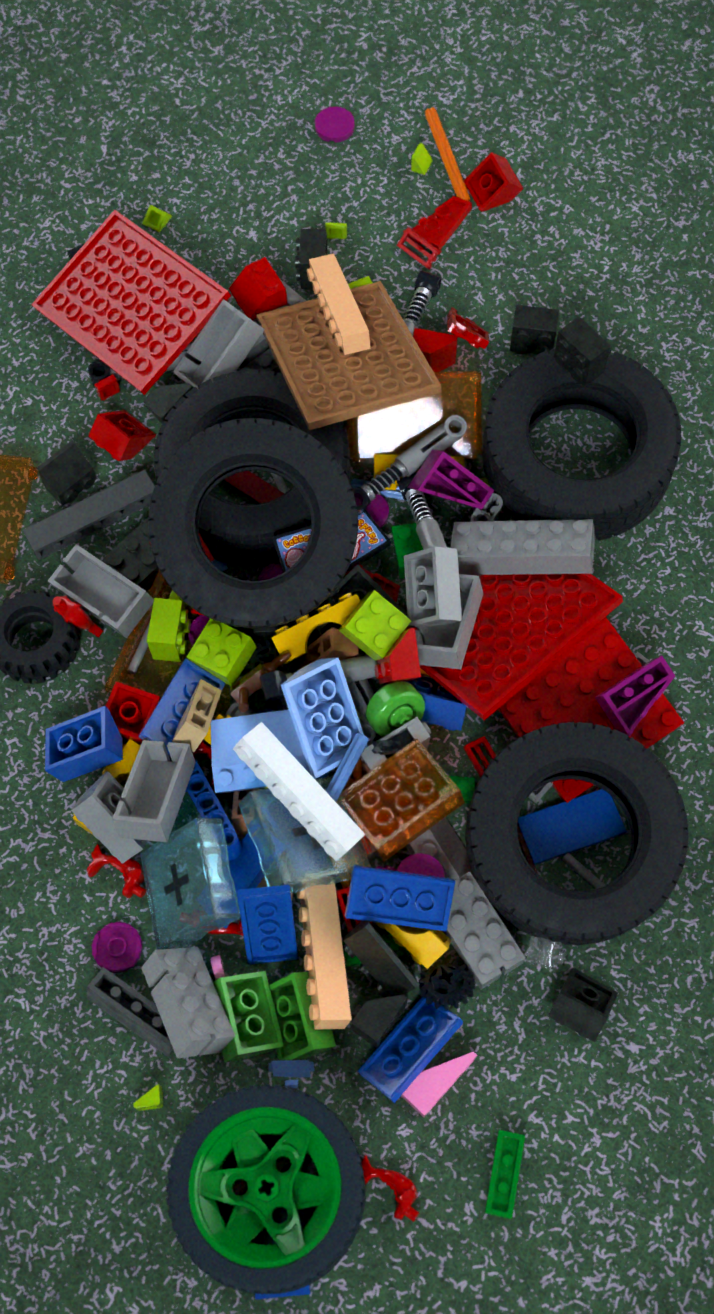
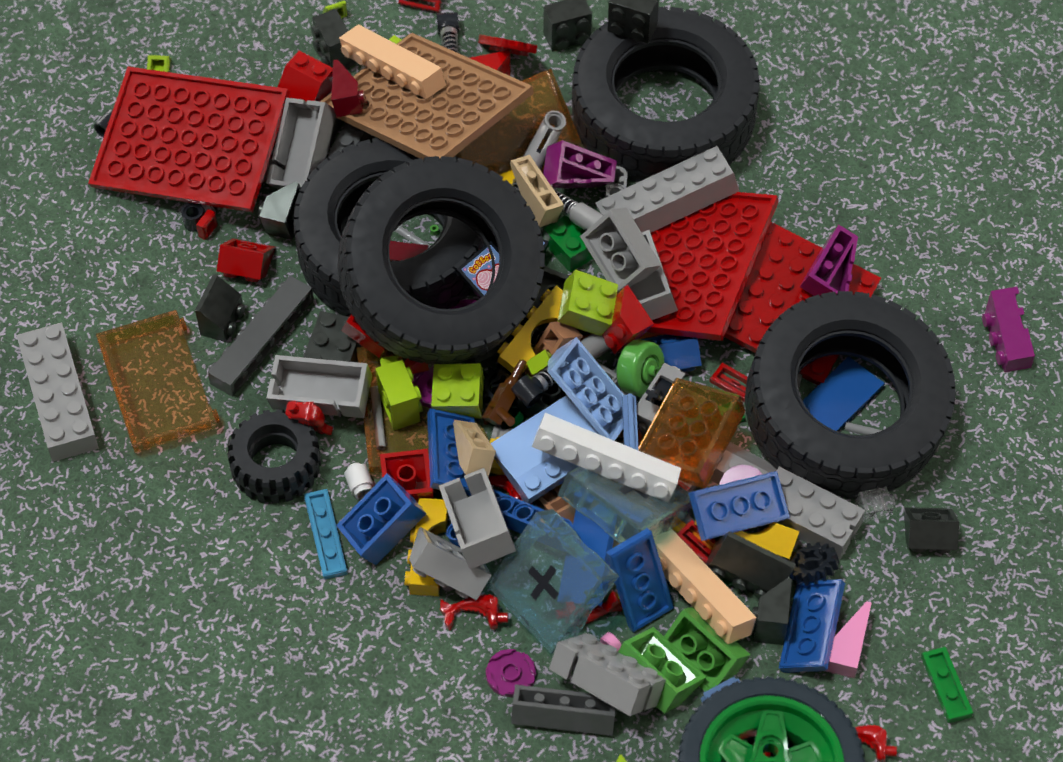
camera: 30 degrees left, 10 degrees down
(33, 741) = (325, 534): none -> dark azure tile
(93, 694) = (358, 480): none -> white brick
(278, 317) = (346, 93): none -> dark red slope
(301, 660) = (539, 362): none -> lime slope
(398, 492) = (536, 190): none -> tan slope

